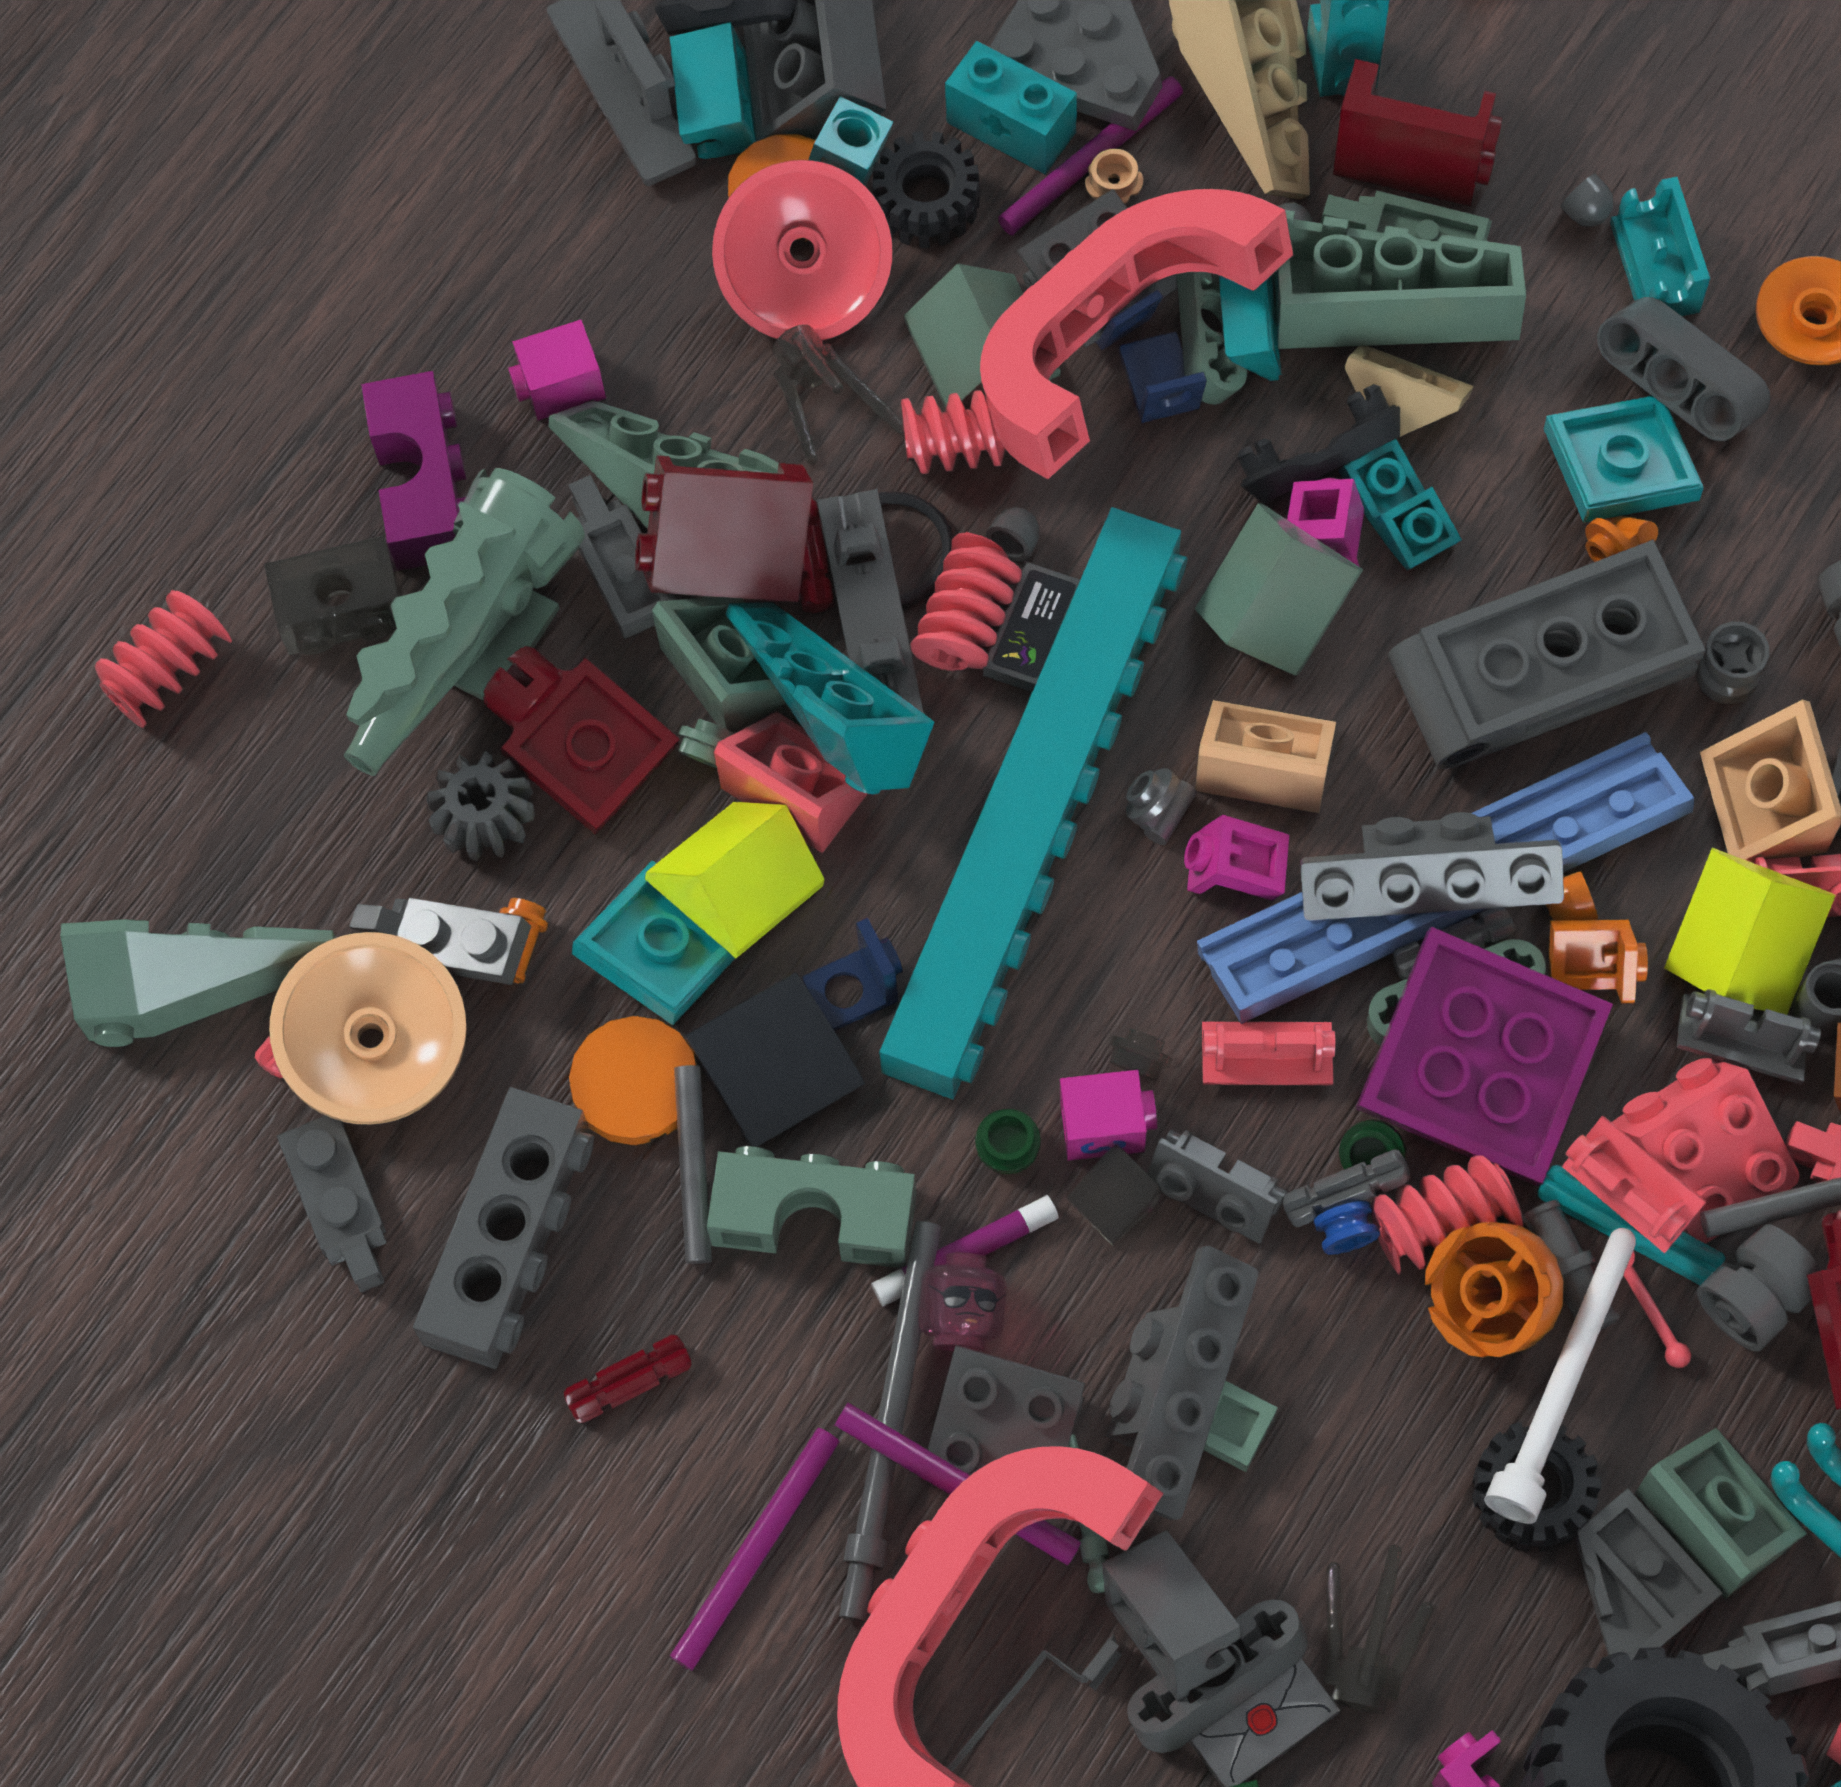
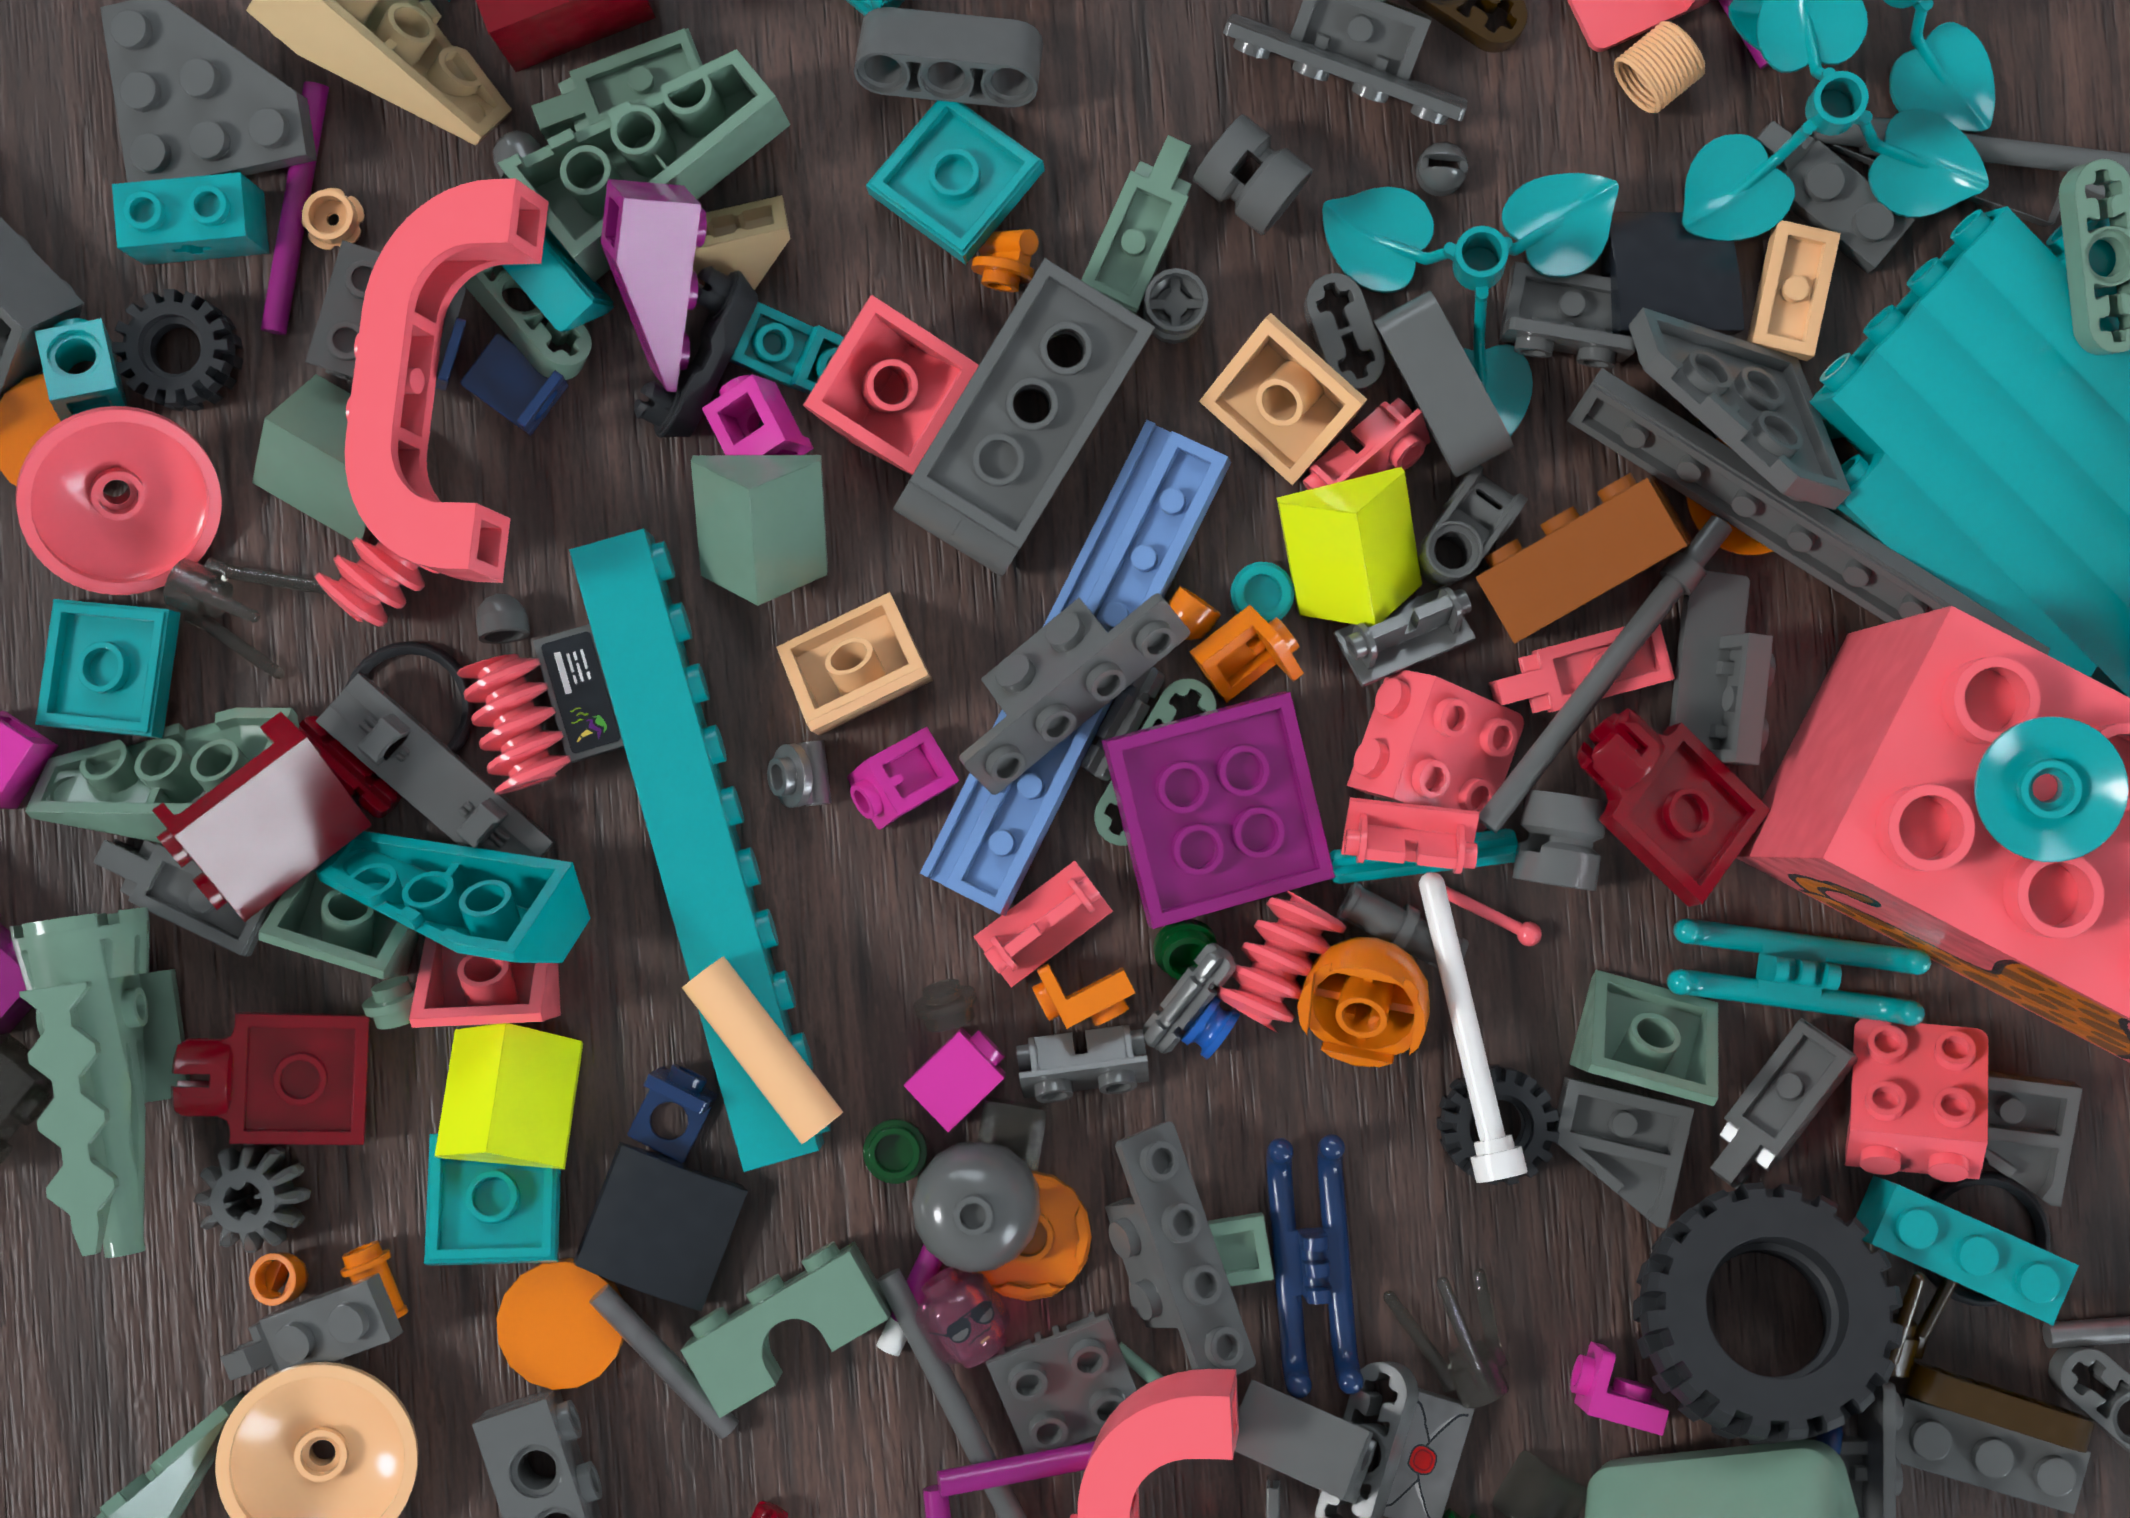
camera: 45 degrees left, 20 degrees up
(448, 880) = (270, 1274): none -> orange hinge
(691, 365) = (108, 668): none -> teal plate
(972, 962) = (762, 1050): none -> light nougat piece
(1043, 1222) = (976, 1206): none -> dark grey cylinder
(1065, 1289) = (1055, 1252): none -> orange tile
(1265, 1135) = (1099, 1000): none -> orange bracket
(1292, 1479) = (1312, 1265): none -> dark blue piece
(1340, 339) = (651, 252): none -> slope
(1452, 555) = (890, 386): none -> coral slope
(1651, 924) = (1264, 588): none -> teal tile
(1754, 584) = (1140, 227): none -> sand green hinge

